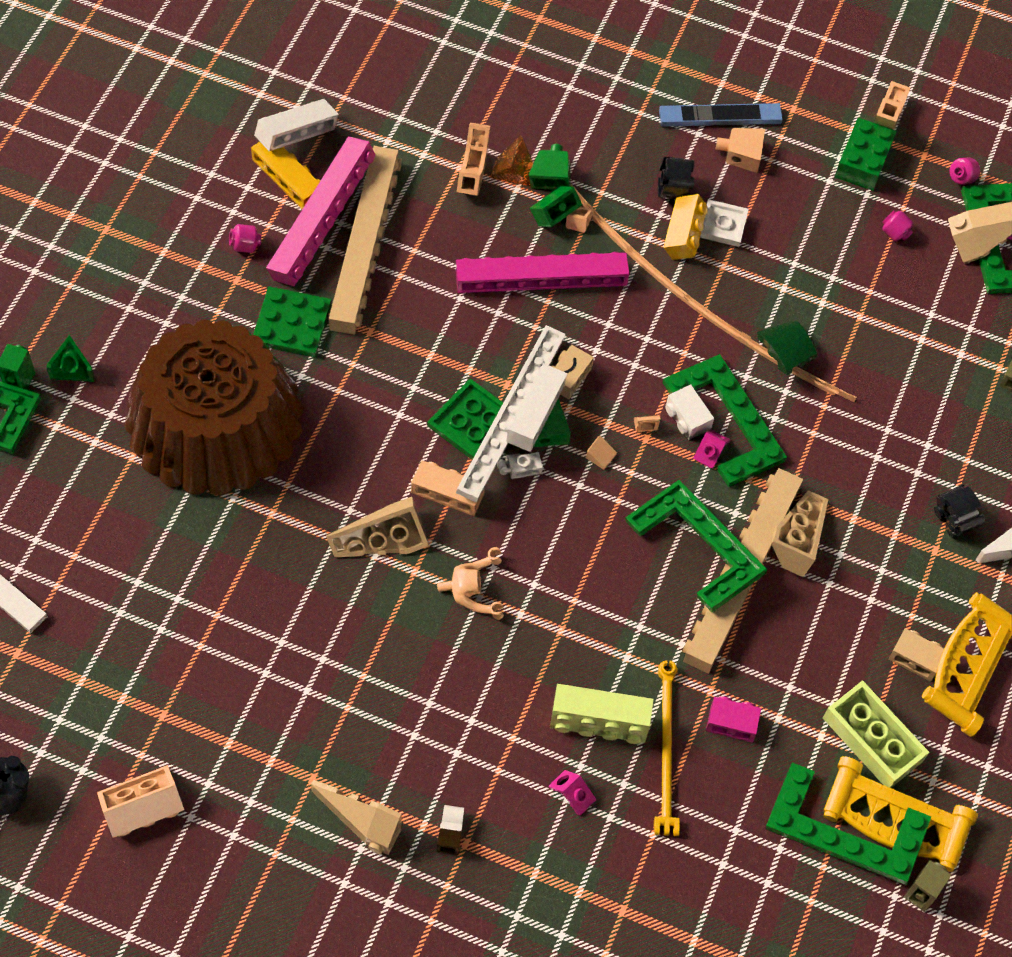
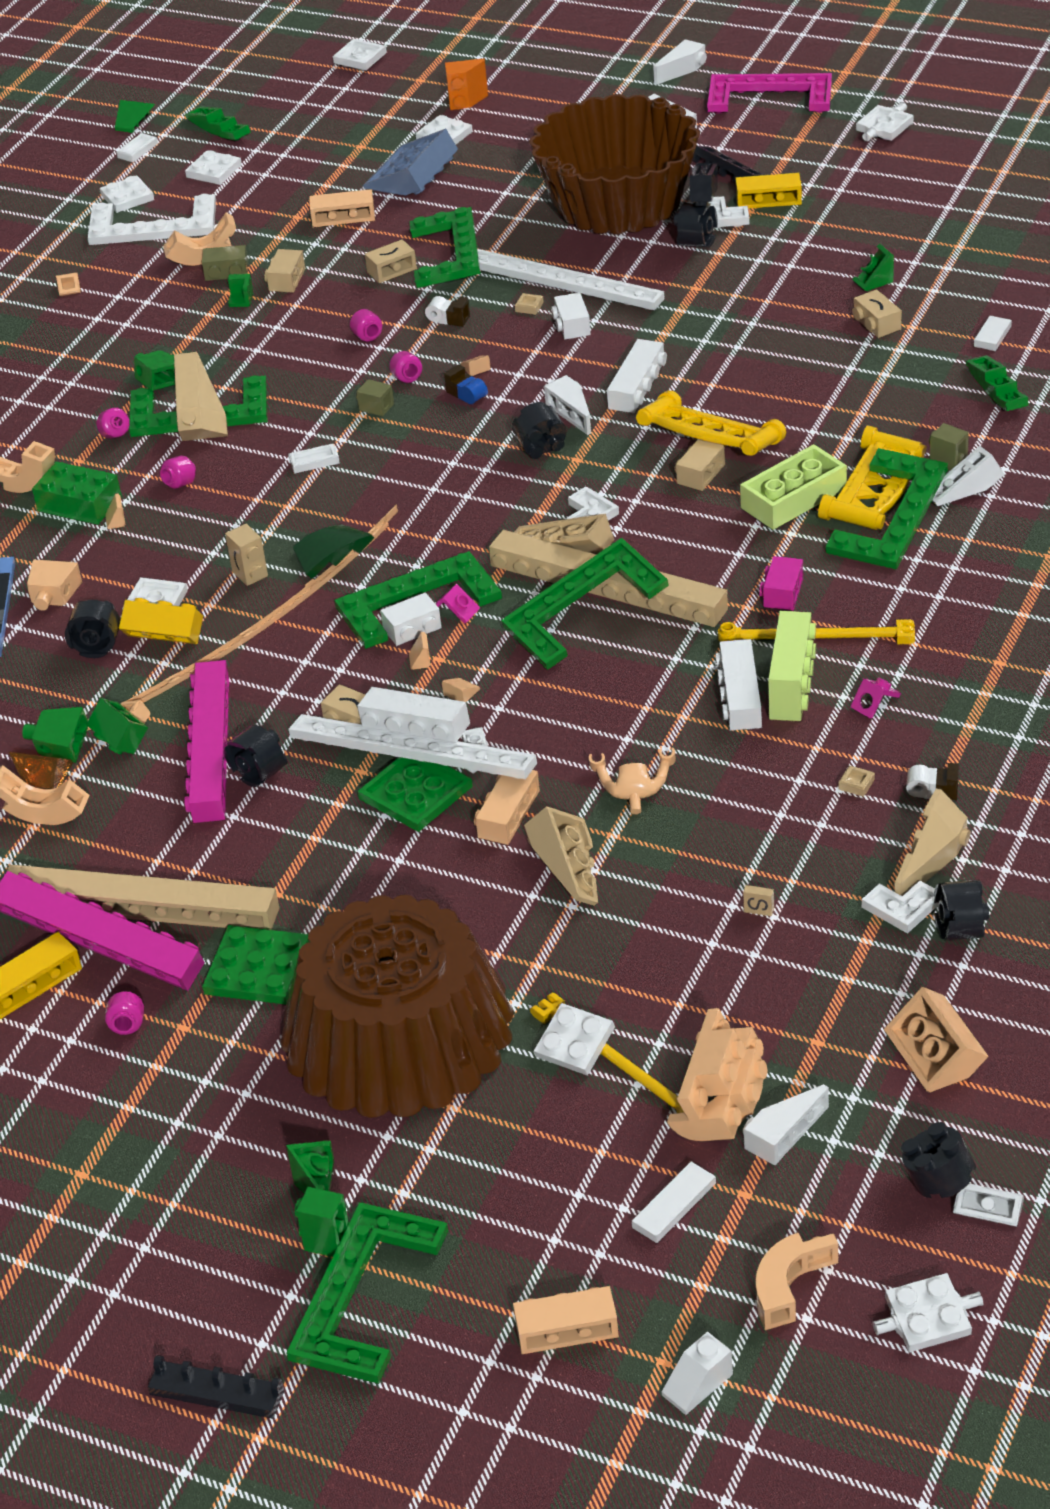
camera: 80 degrees left, 20 degrees down
(64, 674) = (784, 1123): none -> white slope
(110, 633) = (724, 1066): none -> light nougat piece
(179, 535) = (574, 1039): none -> white plate
(217, 522) = (546, 1012): none -> yellow hinge
(275, 830) = (960, 910): none -> black brick
(294, 787) = (899, 910): none -> white plate
(315, 675) = (758, 900): none -> tan tile
(463, 767) = (856, 781): none -> tan tile
(510, 301) = (255, 755): none -> black brick
(595, 672) = (740, 685): none -> white brick
(769, 280) = (246, 554): none -> tan brick
(842, 187) = (115, 513): none -> light nougat slope
(846, 562) = (591, 503): none -> white plate
(897, 906) = (969, 477): none -> white slope
(928, 331) = (313, 458): none -> white tile

